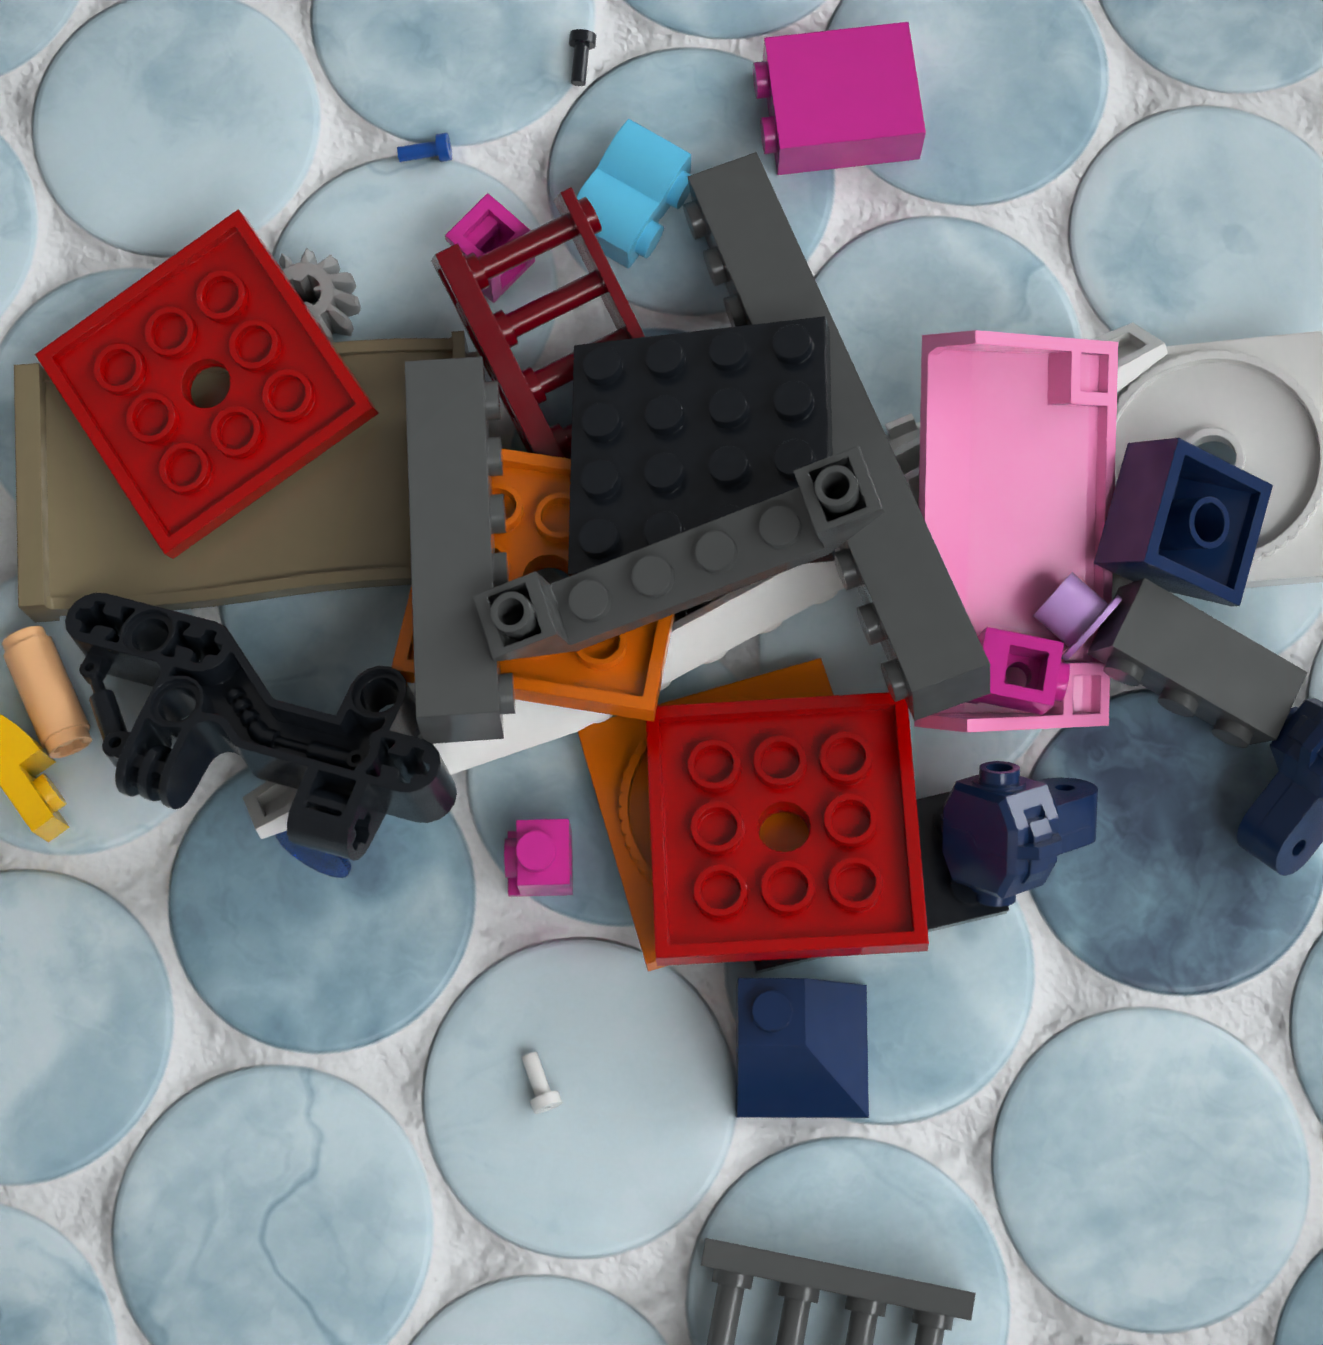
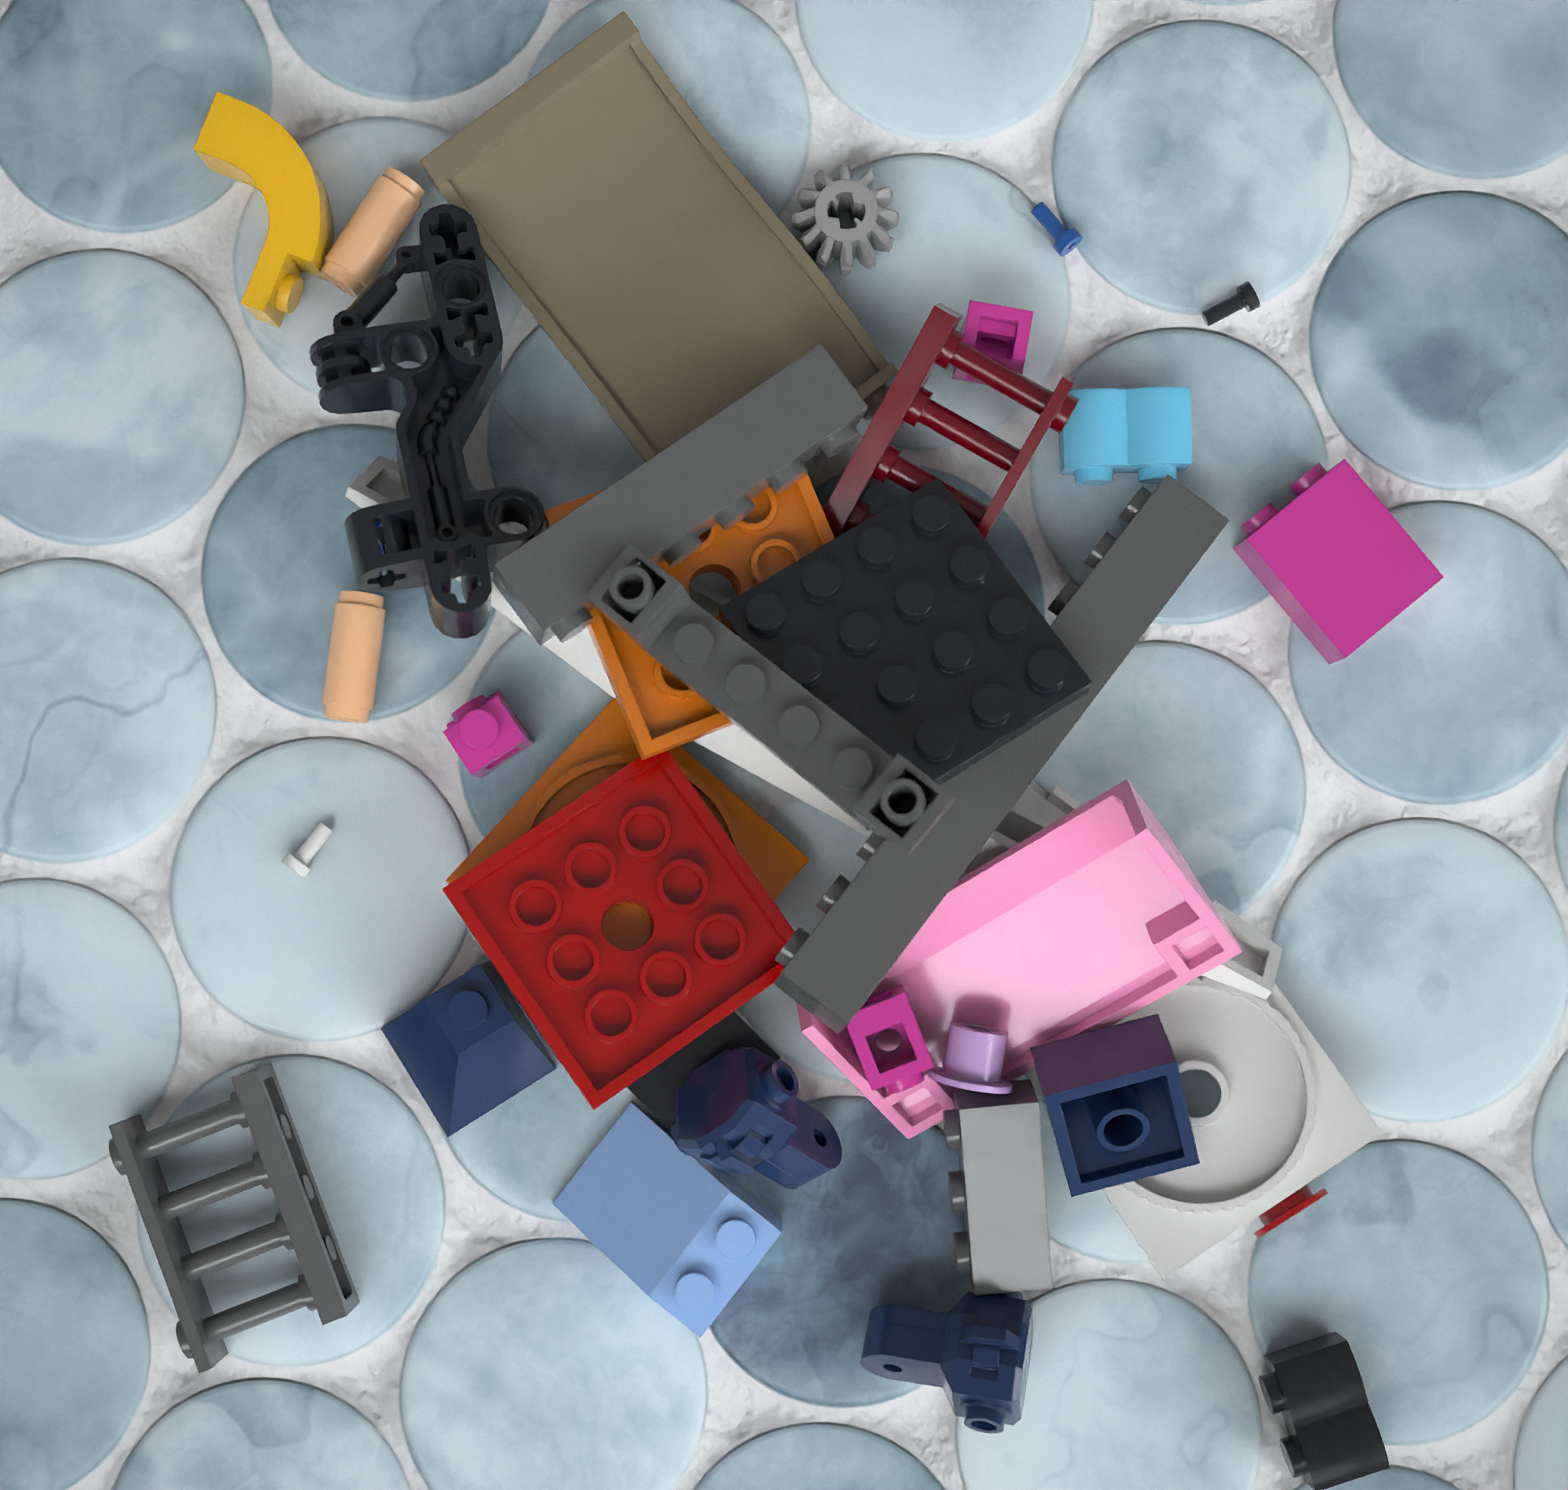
camera: 55 degrees right, 10 degrees up
(134, 369) = (694, 113): red piece -> none
(398, 935) = (353, 656): none -> light nougat piece
(1055, 963) = (668, 1219): none -> light blue slope

